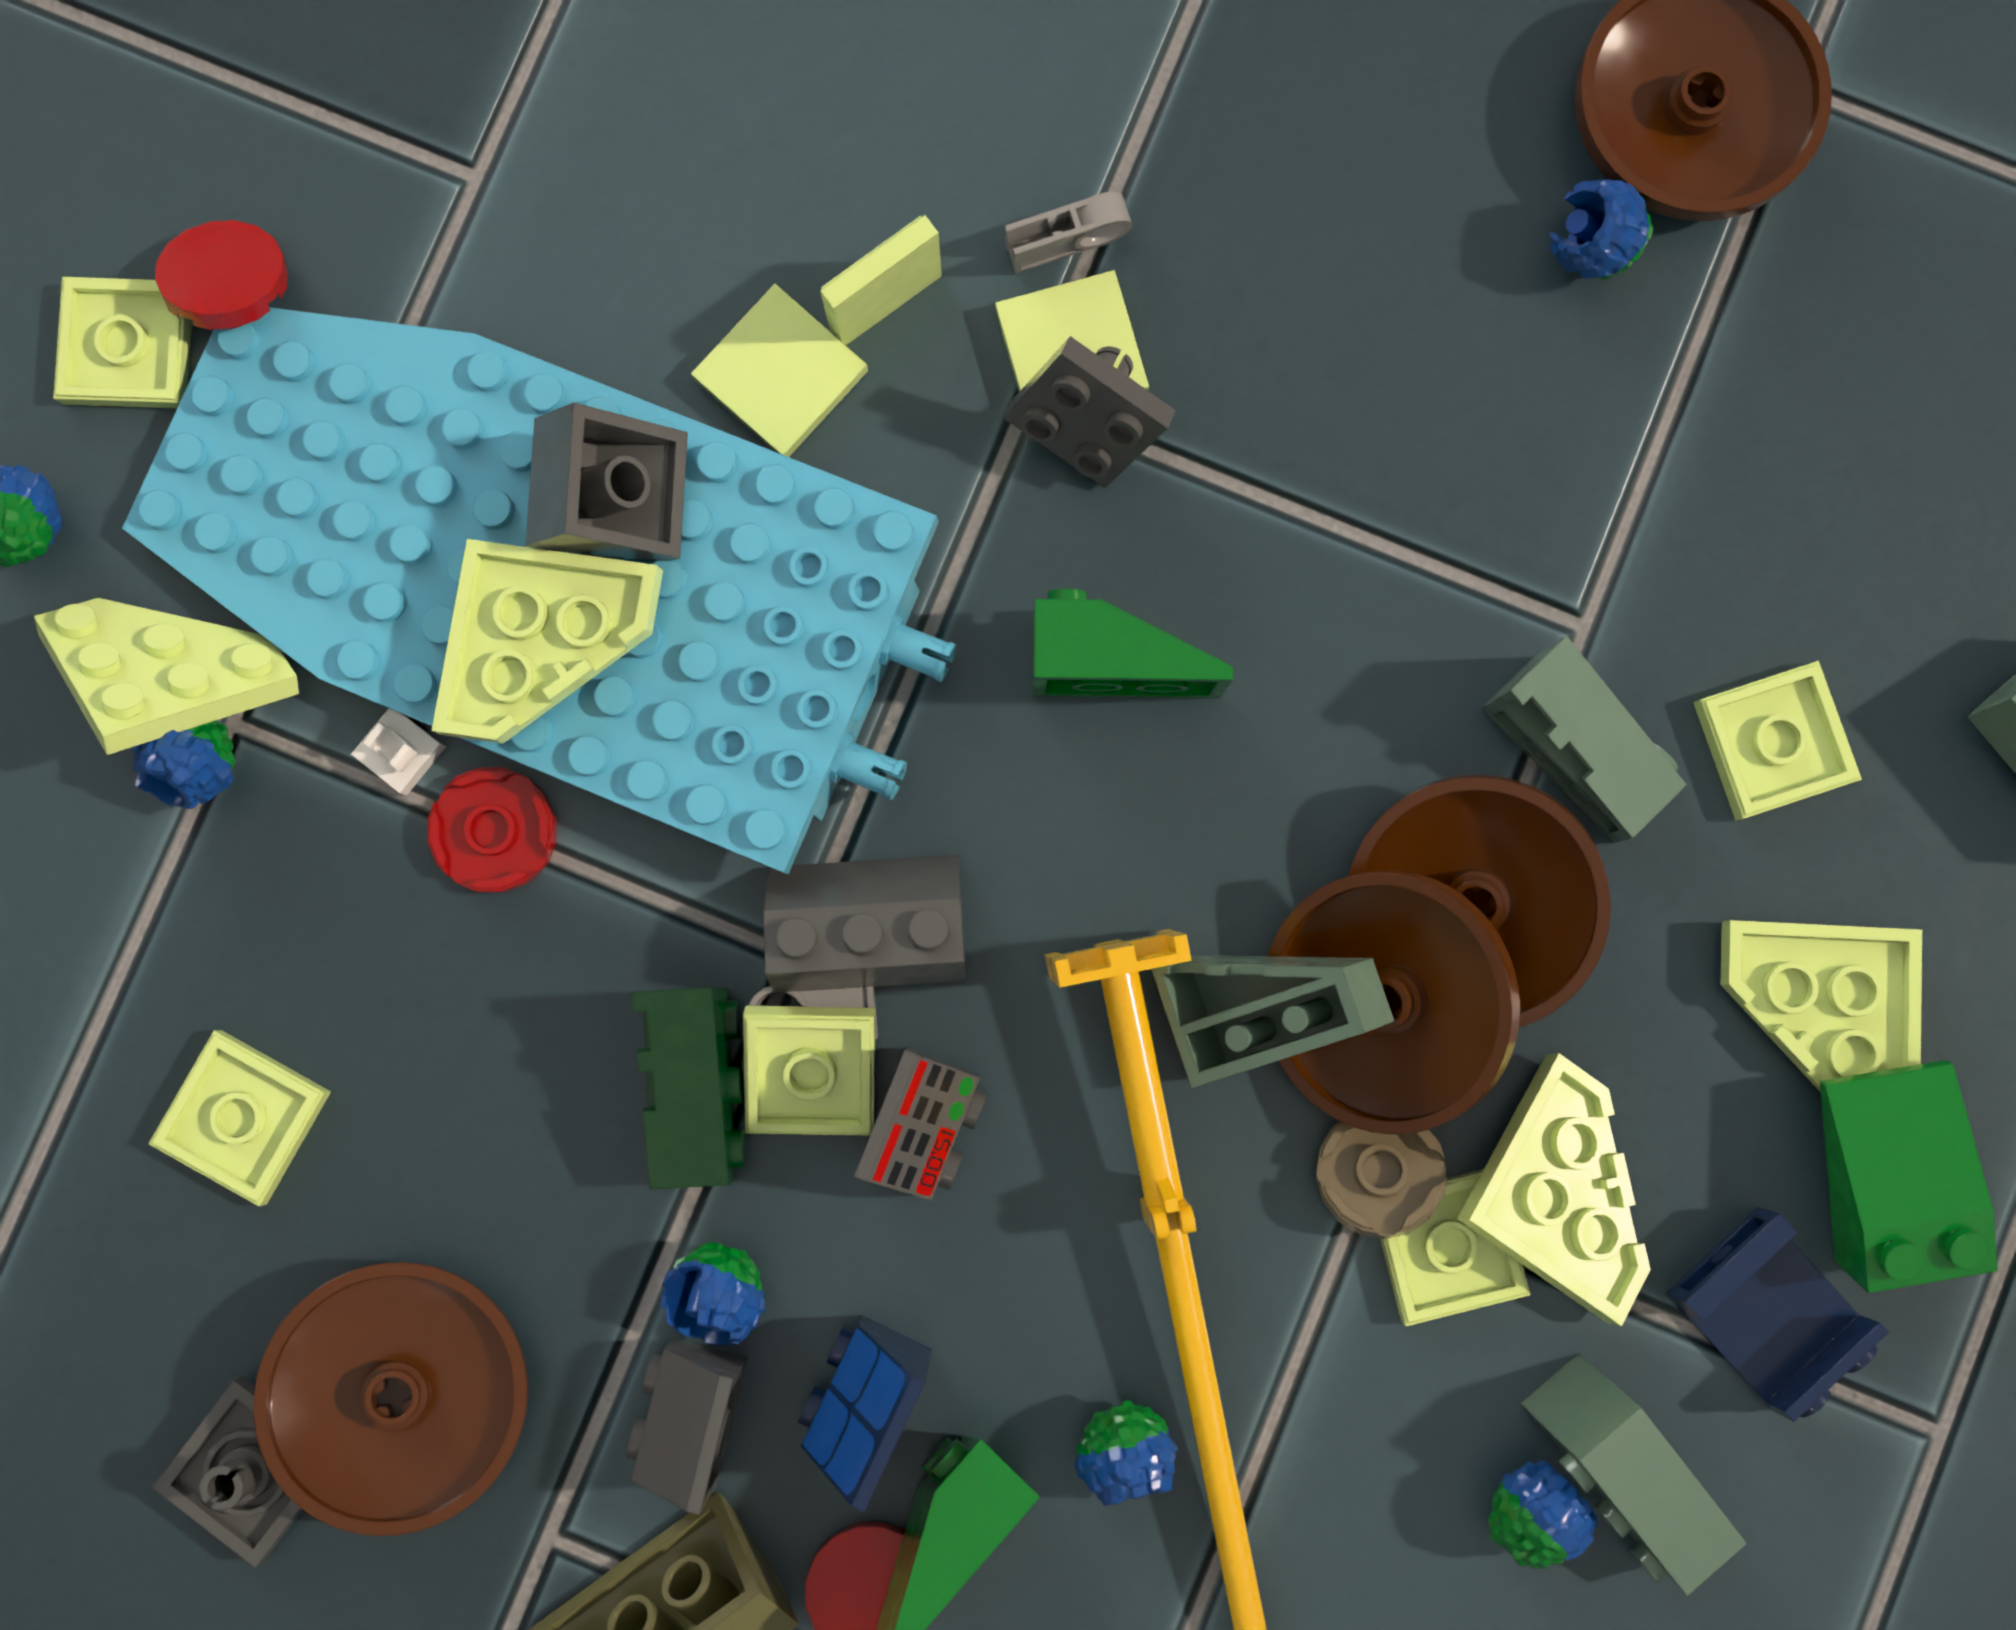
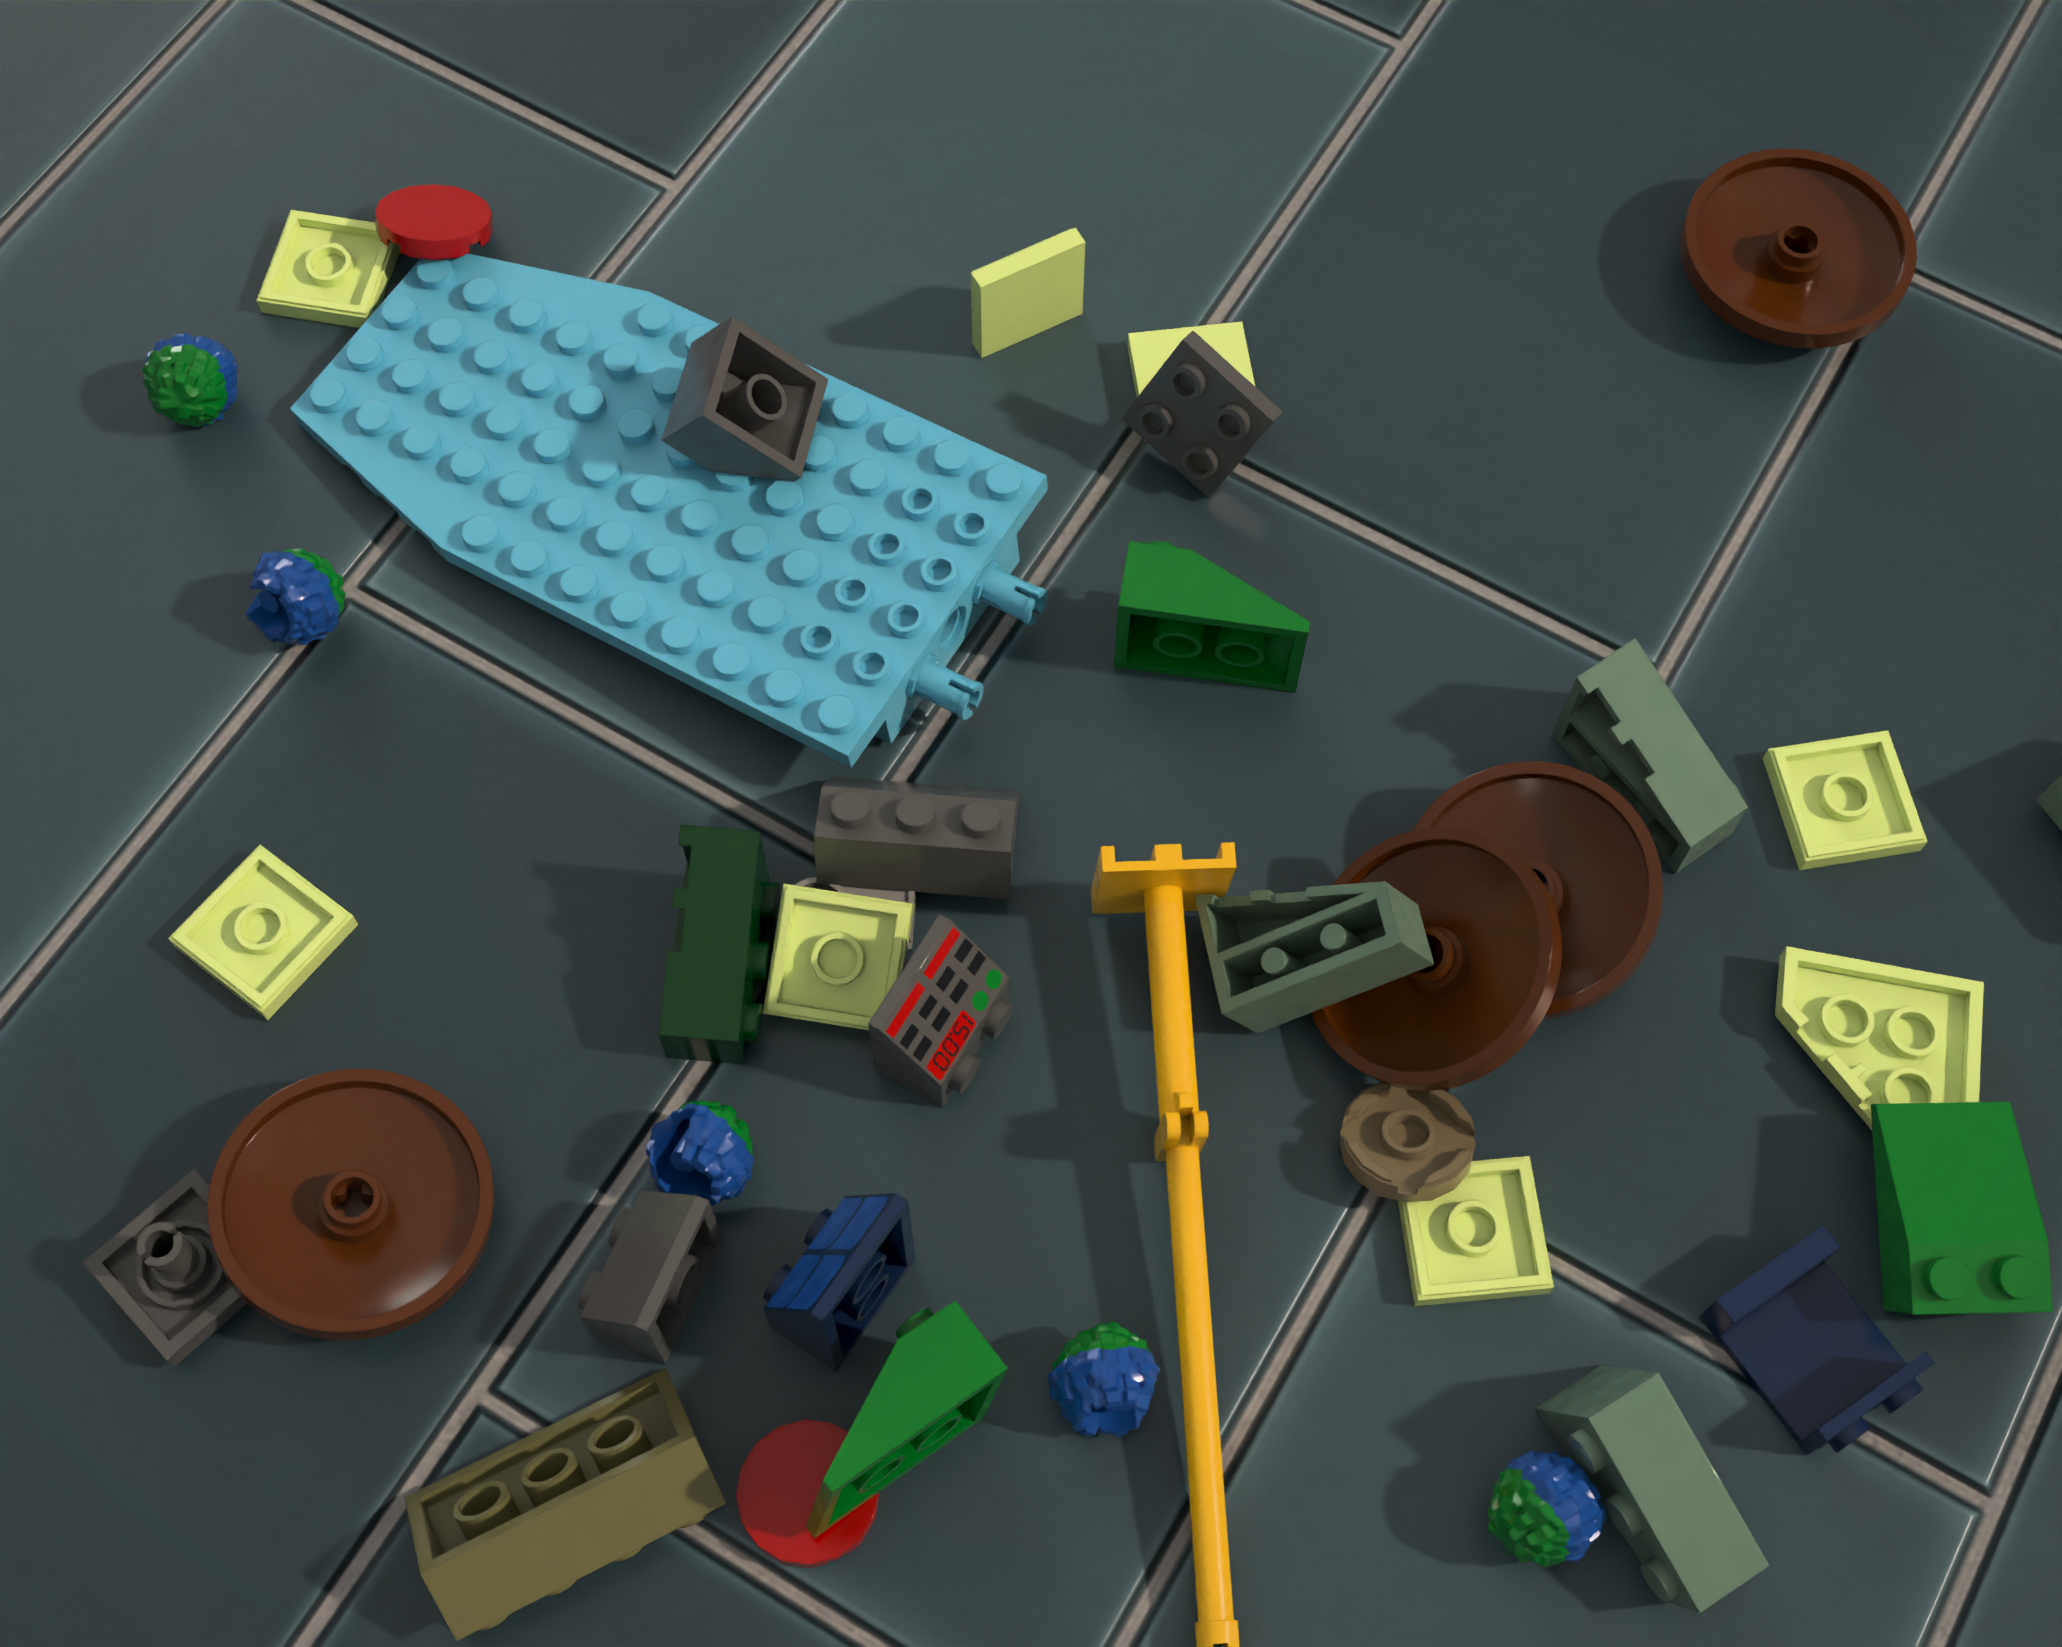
camera: 10 degrees right, 20 degrees down
(158, 671) = (281, 517): yellowish green plate -> none
(398, 751) = (497, 627): white tile -> none
(492, 830) = (571, 709): red tile -> none
(534, 632) = (653, 516): yellowish green plate -> none
(779, 371) = (921, 362): yellowish green tile -> none
(1067, 230) = (1198, 284): light grey piece -> none
(1563, 1193) = (1596, 1189): yellowish green plate -> none
(1604, 229) = (1702, 338): blue piece -> none

